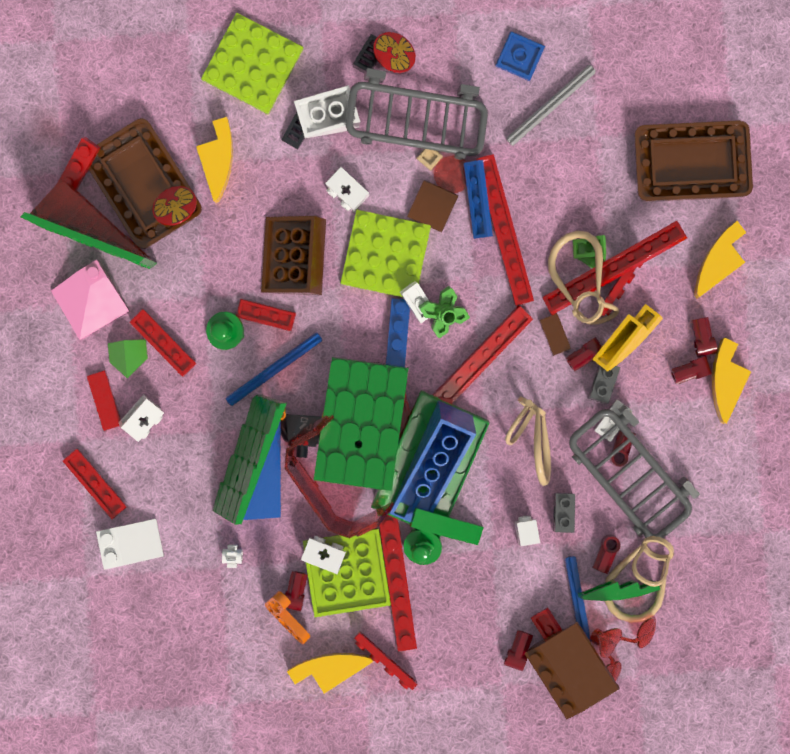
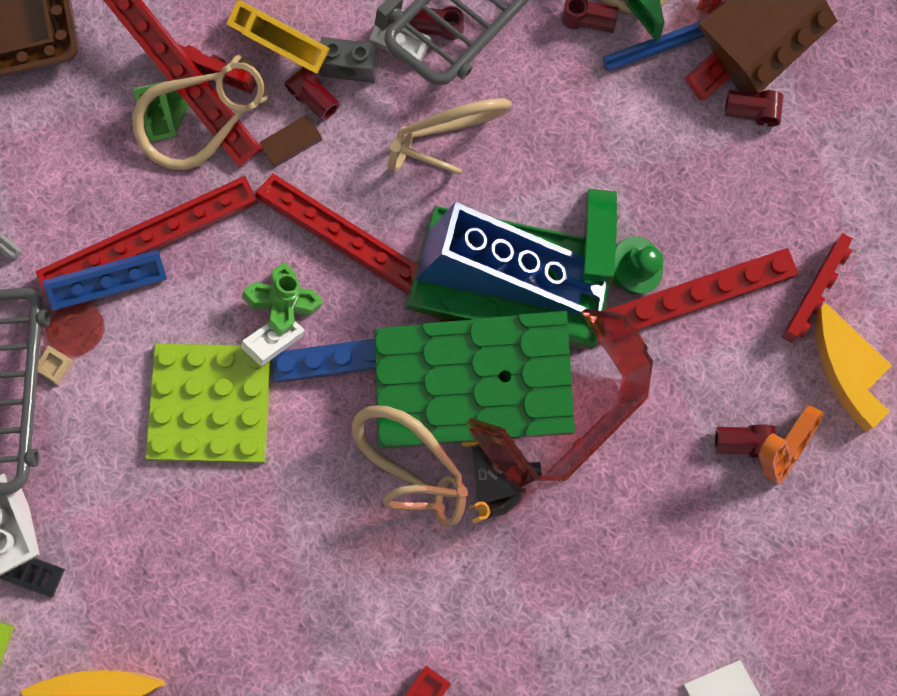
camera: 95 degrees left, 10 degrees down
(225, 330) = (365, 628): green plate -> none
(232, 556) = (716, 548): white gear -> none
(254, 470) = (575, 535): green piece -> none
(266, 315) = (330, 569): red tile -> none
(273, 369) = (413, 541): blue axle -> none
(293, 255) = (229, 542): reddish brown slope -> none
(296, 372) = (419, 486): none -> tan animal
(312, 555) = (693, 391): white brick -> none
(357, 192) = (105, 490): white brick -> none
(359, 582) = (705, 371): lime plate -> none
(432, 205) = (125, 346): reddish brown slope -> none
(526, 531) = (583, 121): white brick -> none
(564, 513) = (544, 79): dark grey brick -> none

